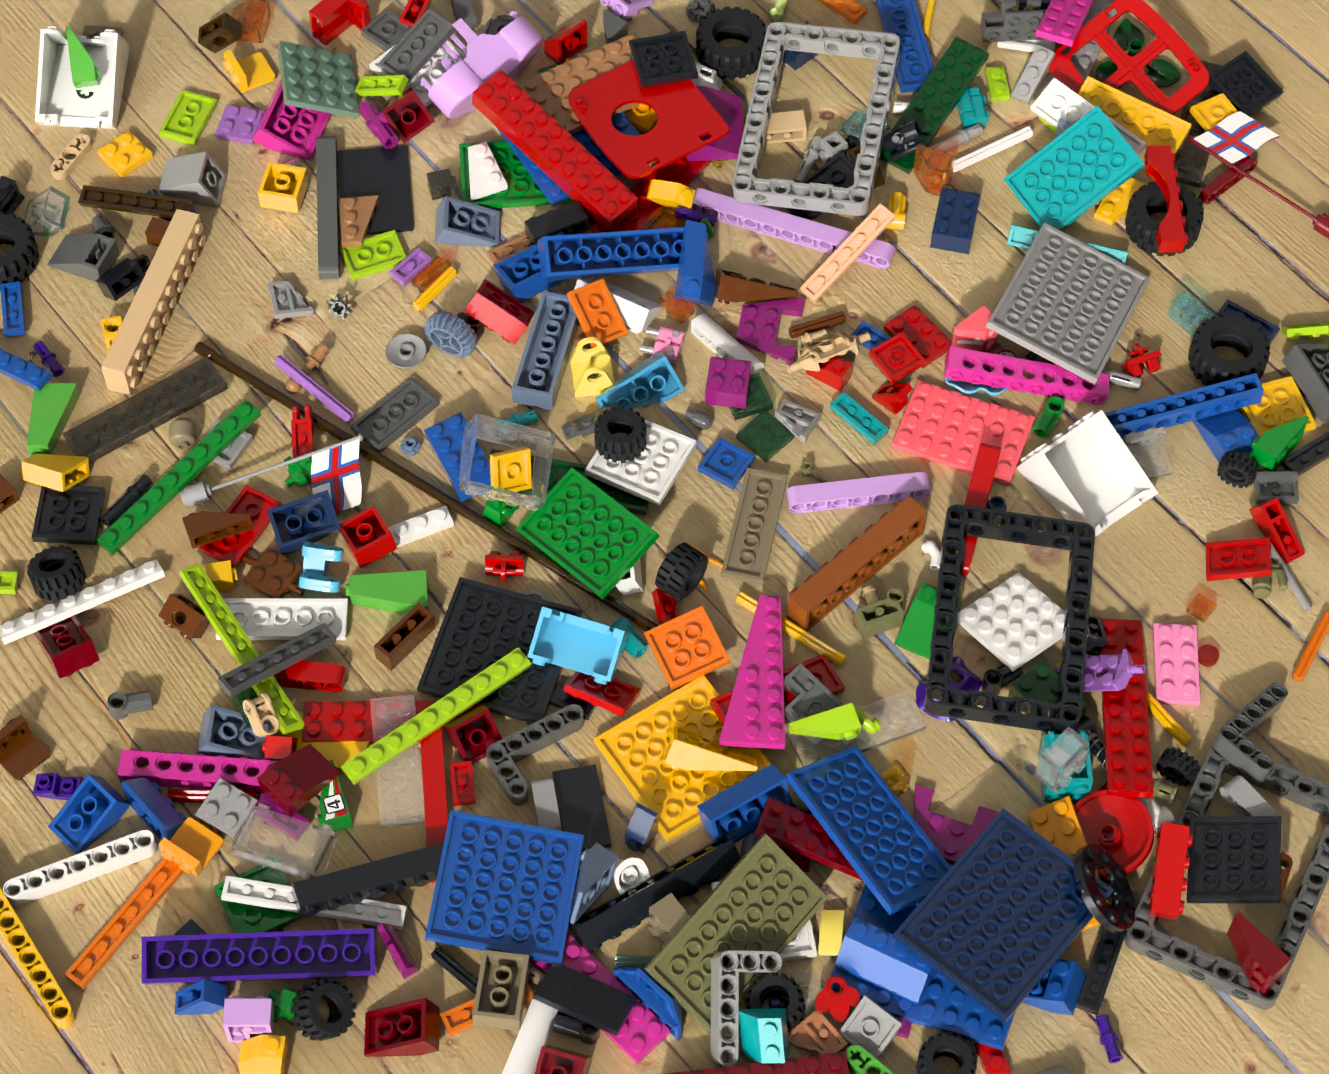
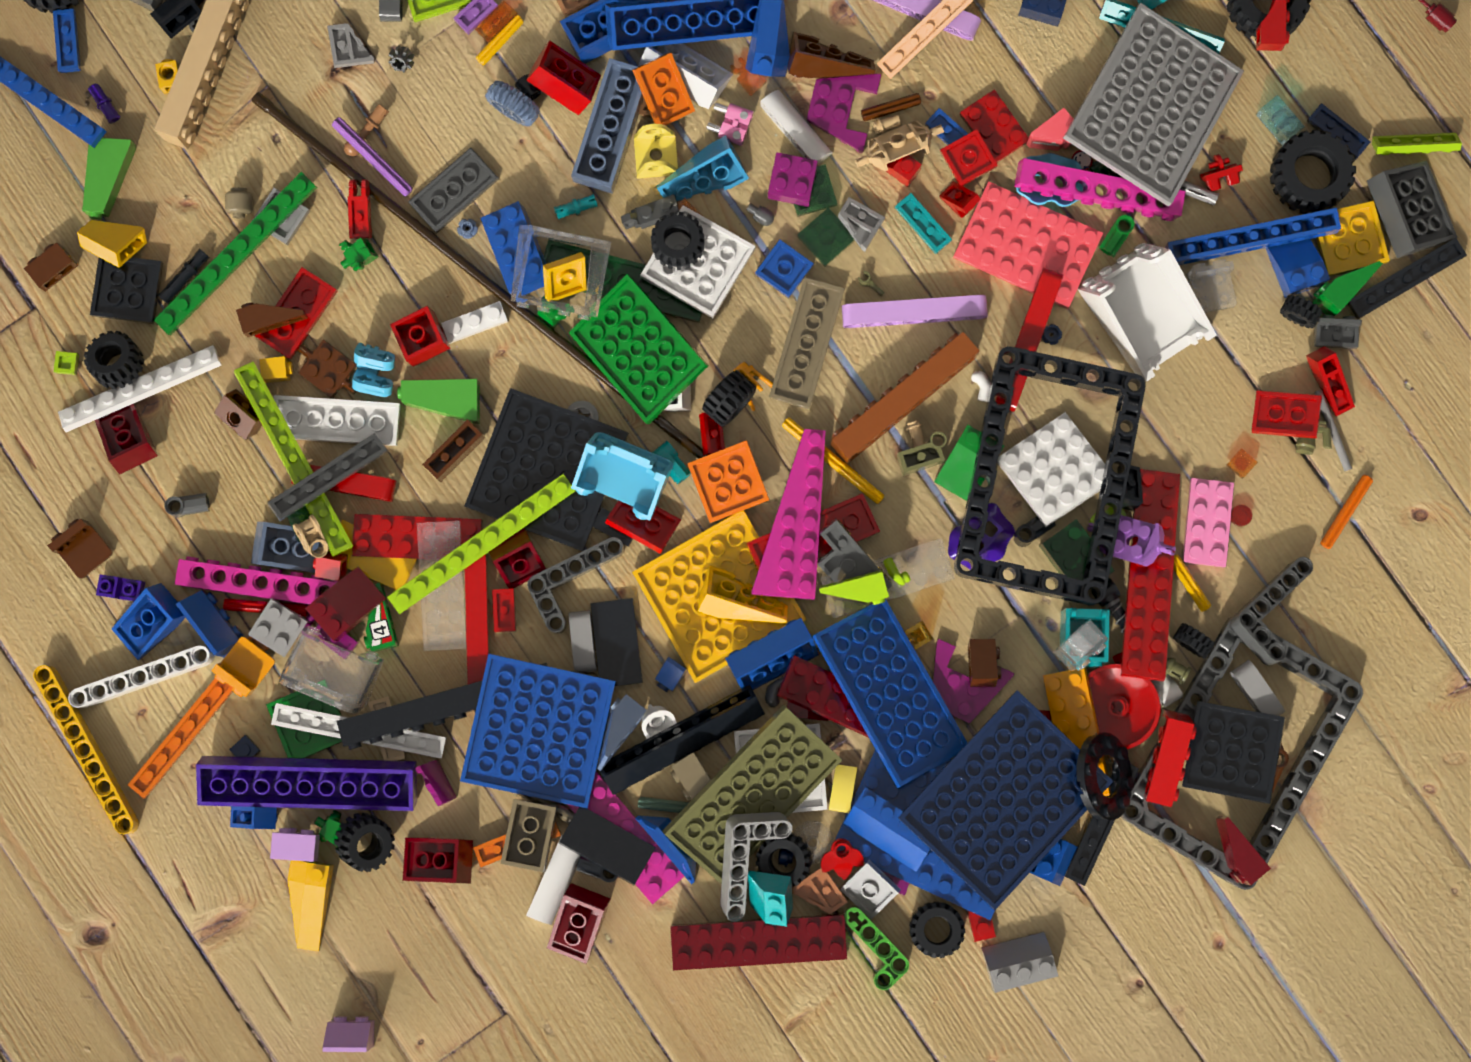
camera: 10 degrees right, 25 degrees up
(146, 410) = (202, 172): clear smoke plate -> none
(303, 521) = (356, 318): dark blue slope -> none
(332, 469) = (388, 267): flag -> none
(402, 345) = (464, 107): light grey dish -> none
(455, 969) = (491, 802): black axle -> none
(504, 564) = (554, 375): red hips -> none
(965, 800) = (983, 662): none -> reddish brown brick
(1108, 1038) = (1090, 911): dark purple pin -> none

